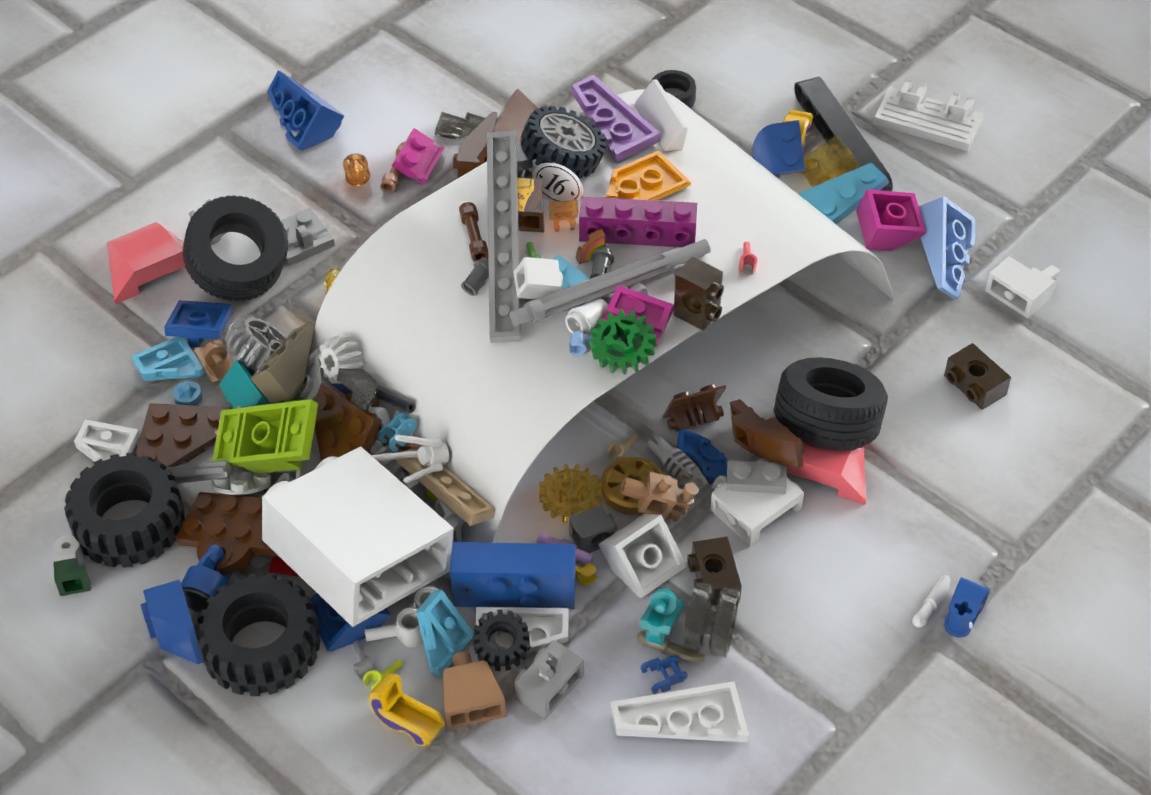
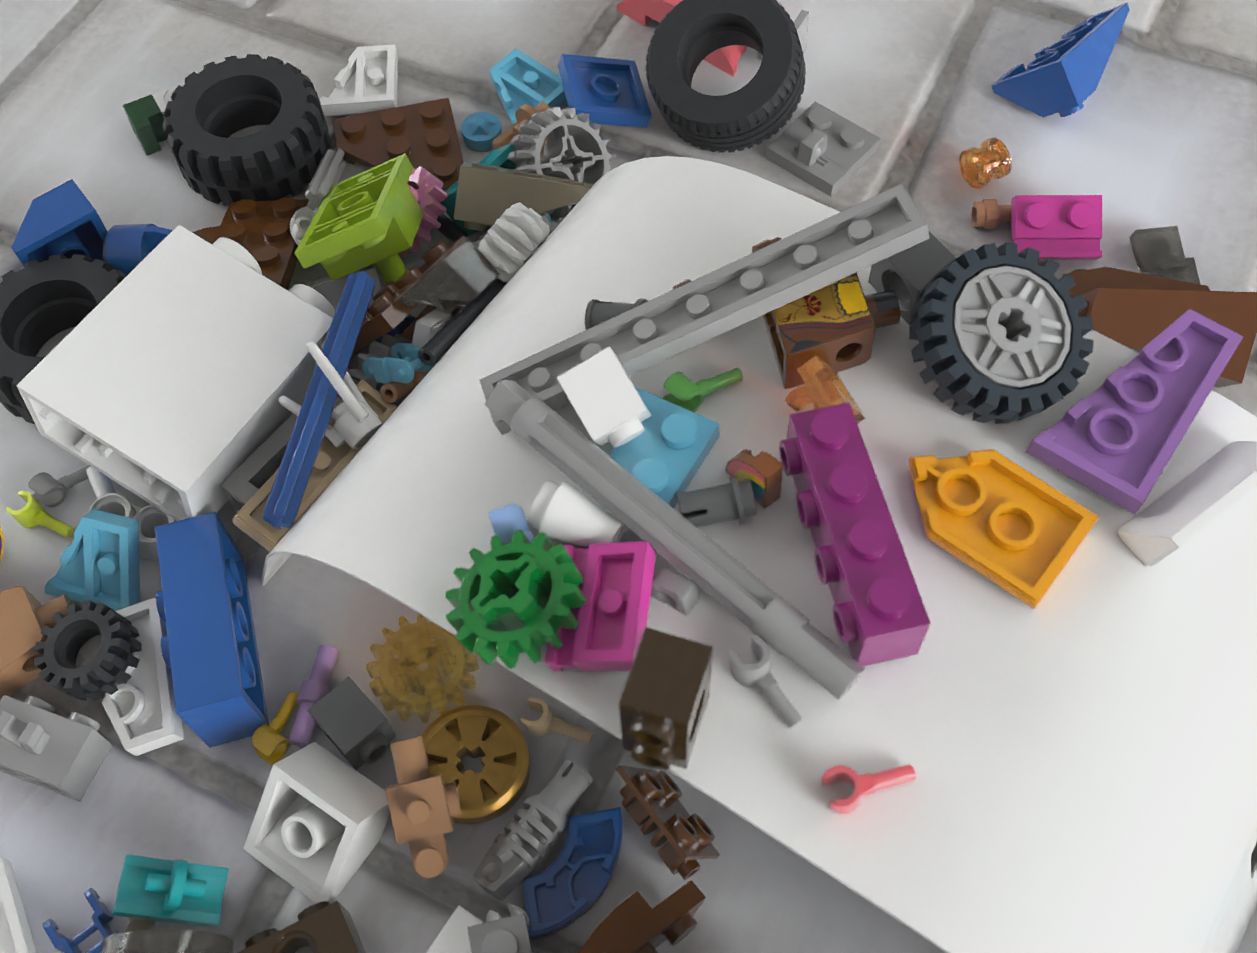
camera: 75 degrees right, 10 degrees up
(415, 458) = (318, 404): none -> blue axle
(558, 182) = (893, 364): white sticker -> none

